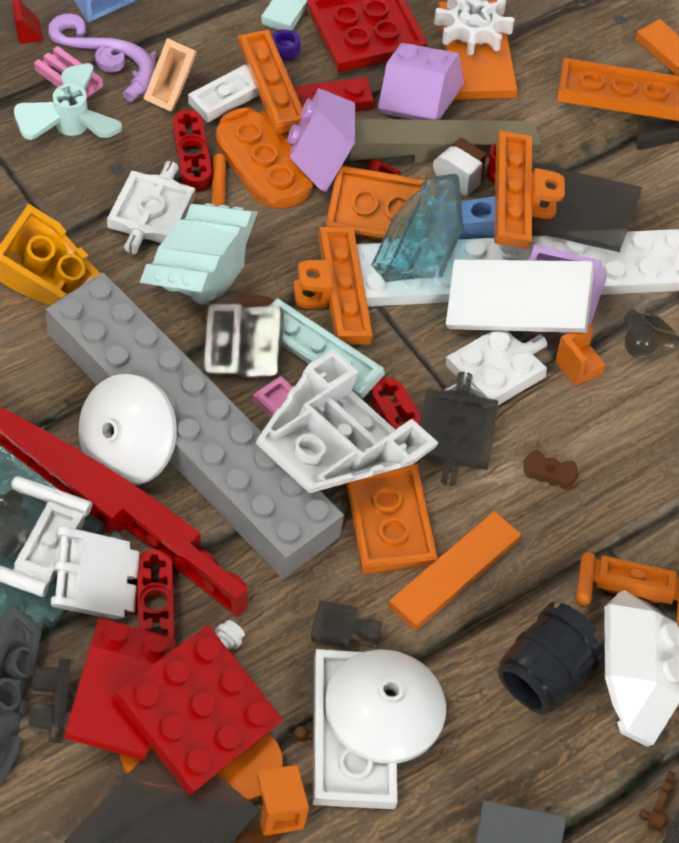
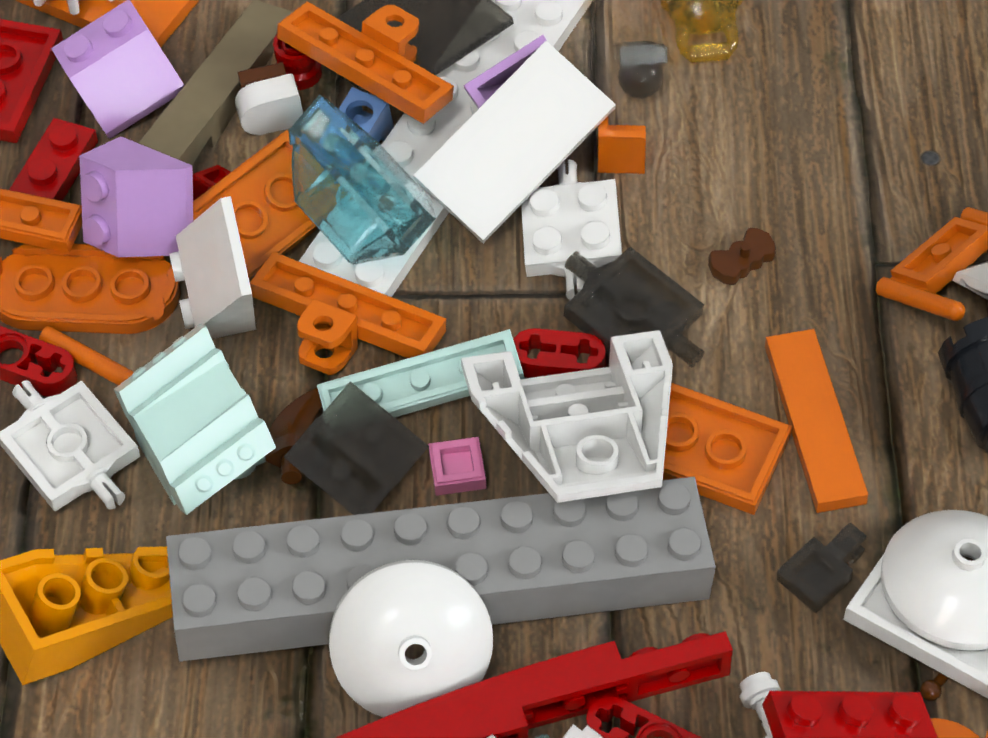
camera: 50 degrees left, 0 degrees up
(305, 206) = (214, 273): none -> white slope

